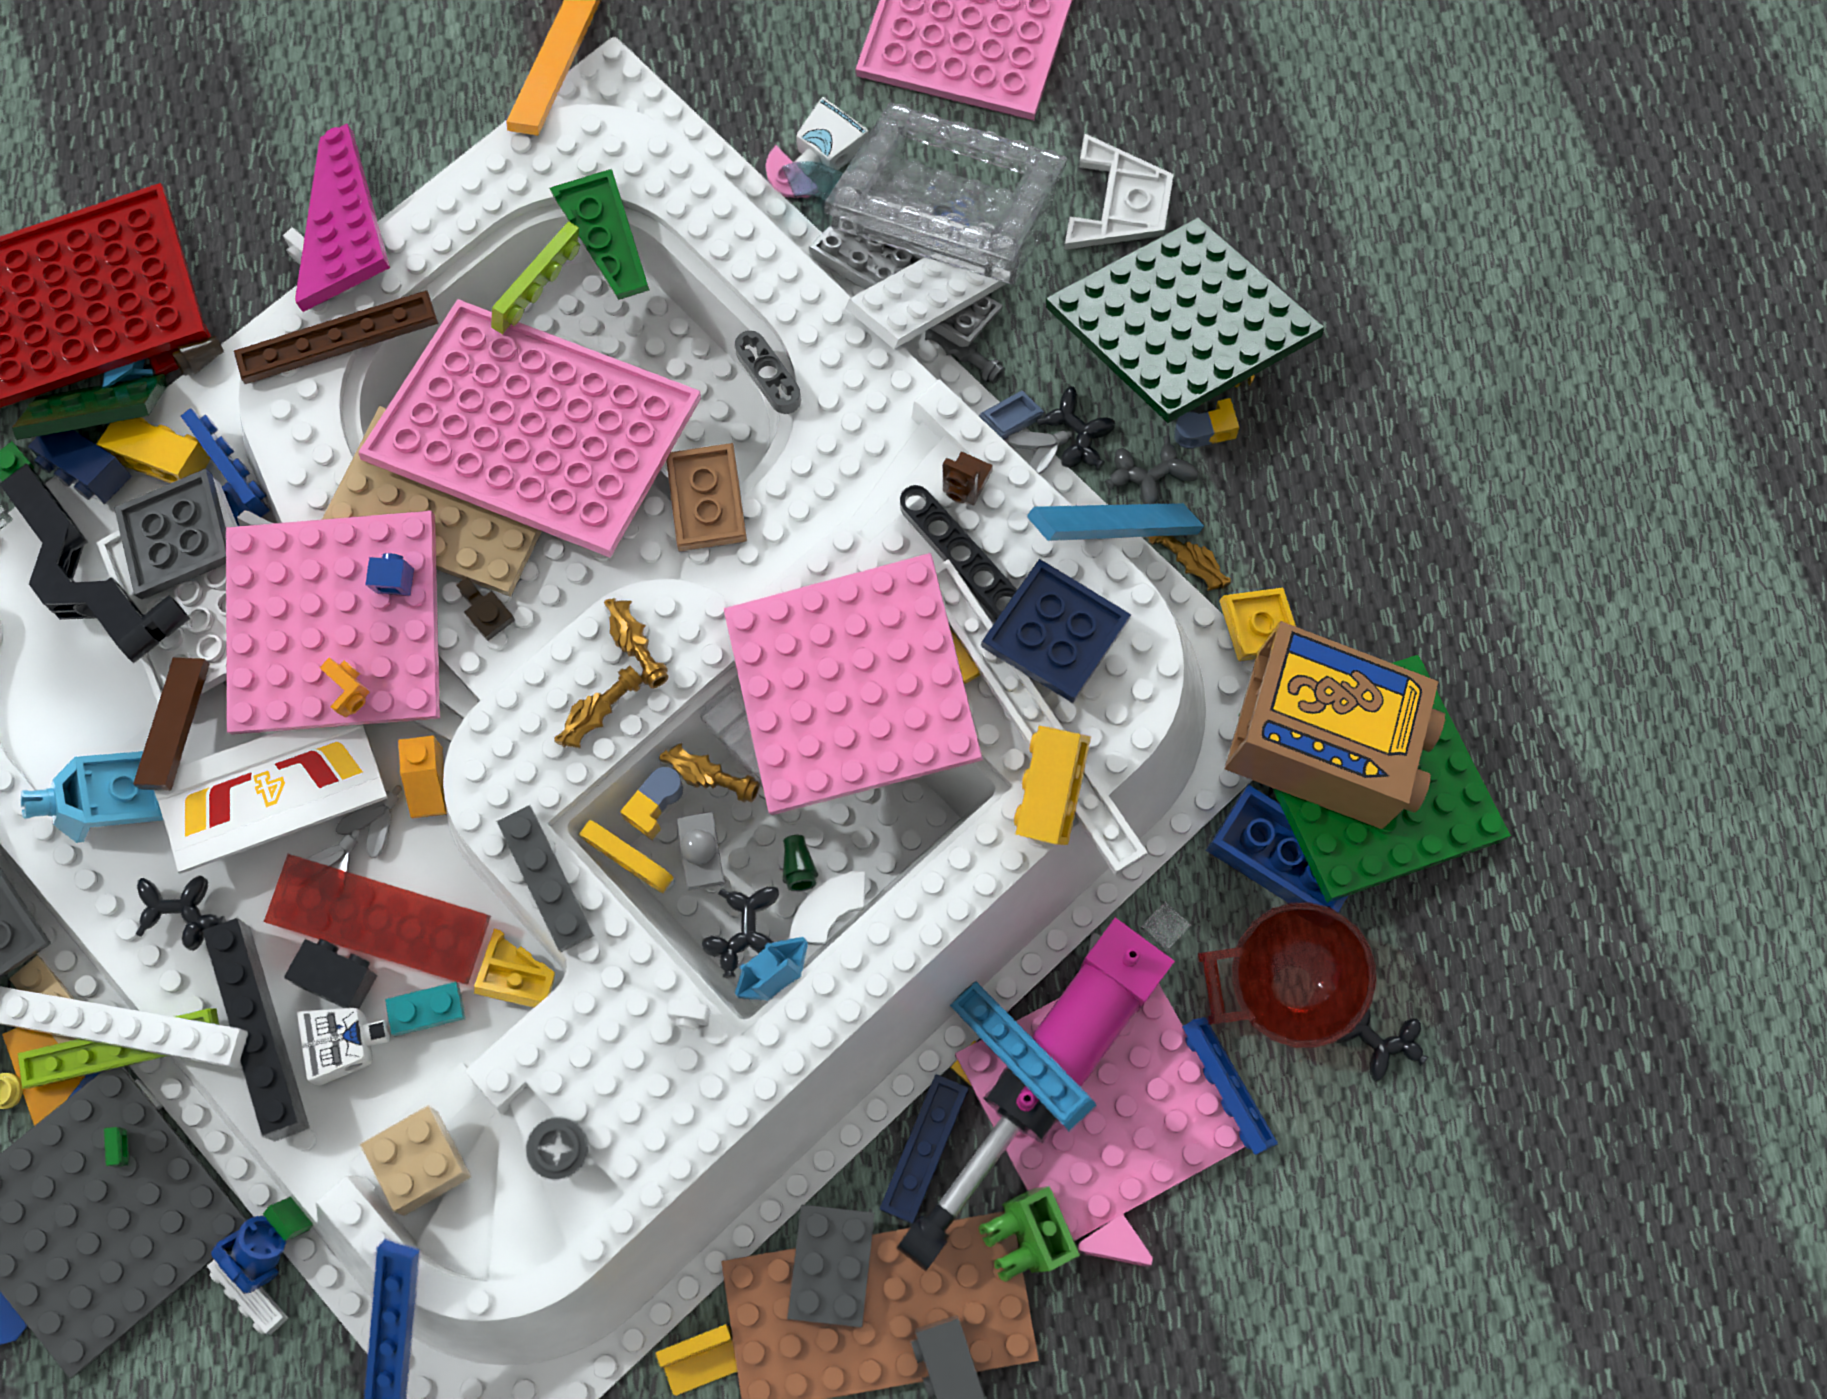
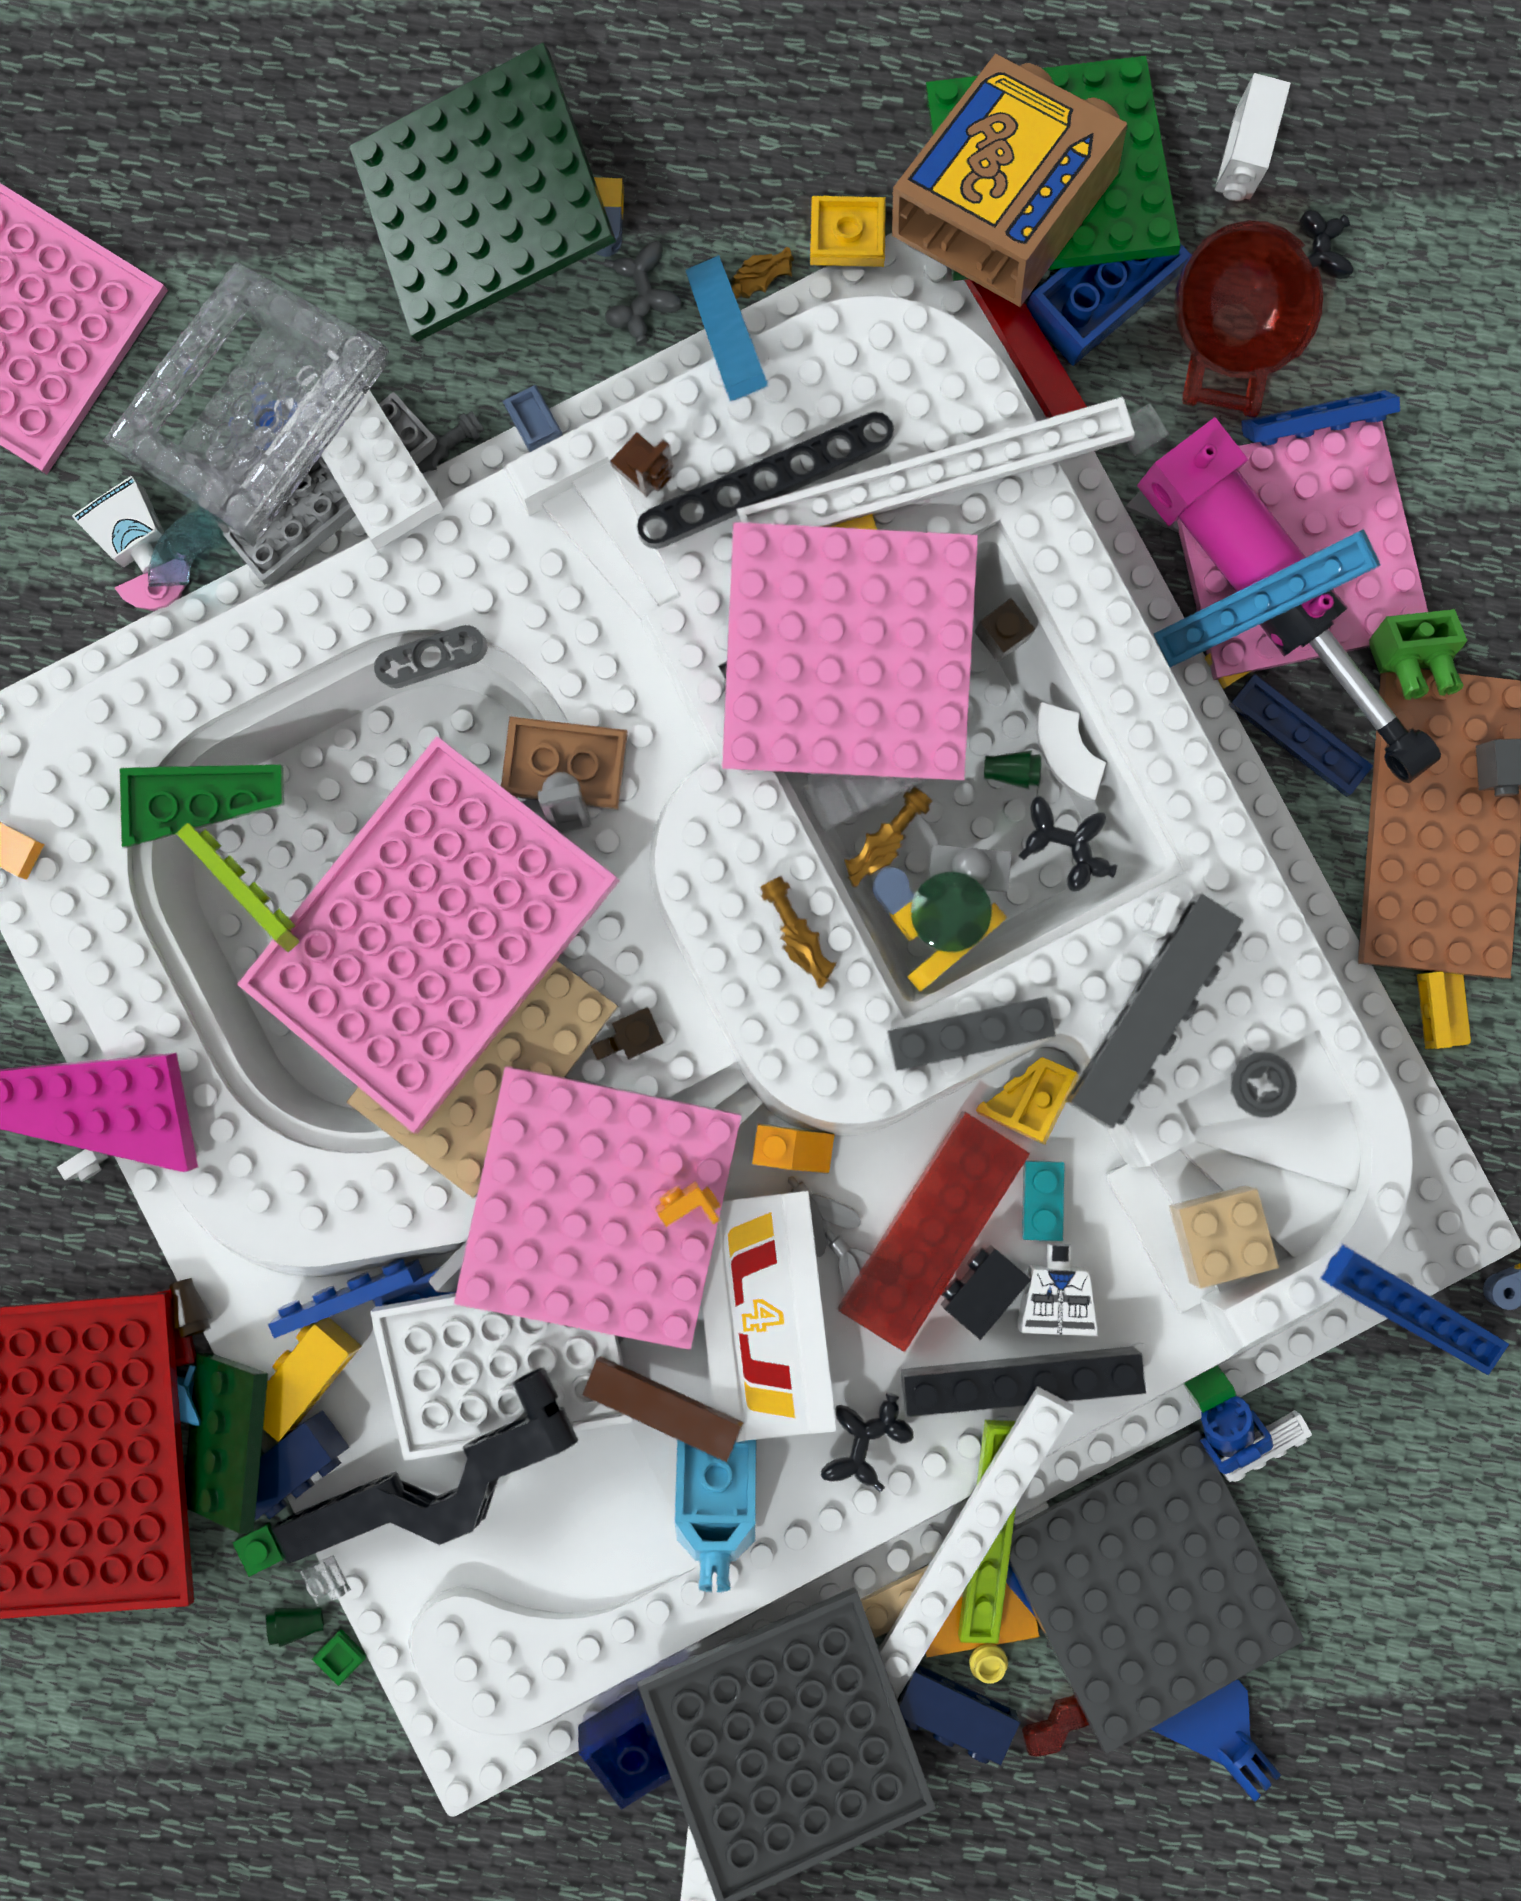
camera: 80 degrees left, 15 degrees up
(116, 1146) = (1098, 1551): green tile -> none
(172, 534) = (430, 1368): dark grey plate -> none
(335, 337) = (240, 1135): reddish brown tile -> none
(390, 575) = (575, 1126): blue plate -> none
(600, 1029) = (1154, 1011): none -> dark grey brick
(630, 638) = (721, 878): pearl gold piece -> none
(650, 834) = (951, 912): none -> clear green dish
(665, 497) = (563, 803): none -> light grey tile
(772, 969) = (1124, 822): dark azure piece -> none
(831, 1266) = (1401, 853): dark grey plate -> none
(917, 819) = (1004, 630): none -> dark brown brick
(1045, 443) = (576, 394): light grey piece -> none
(1052, 785) = (1030, 469): yellow brick -> none
(1055, 630) = (857, 415): dark blue plate -> none
(1086, 432) = (573, 346): black piece -> none
(1117, 1242) = (1443, 573): bright pink slope -> none
(1133, 201) = (305, 208): white wing -> none
(1188, 822) = (1029, 352): none -> red tile
(1463, 945) = (1252, 137): none -> white window

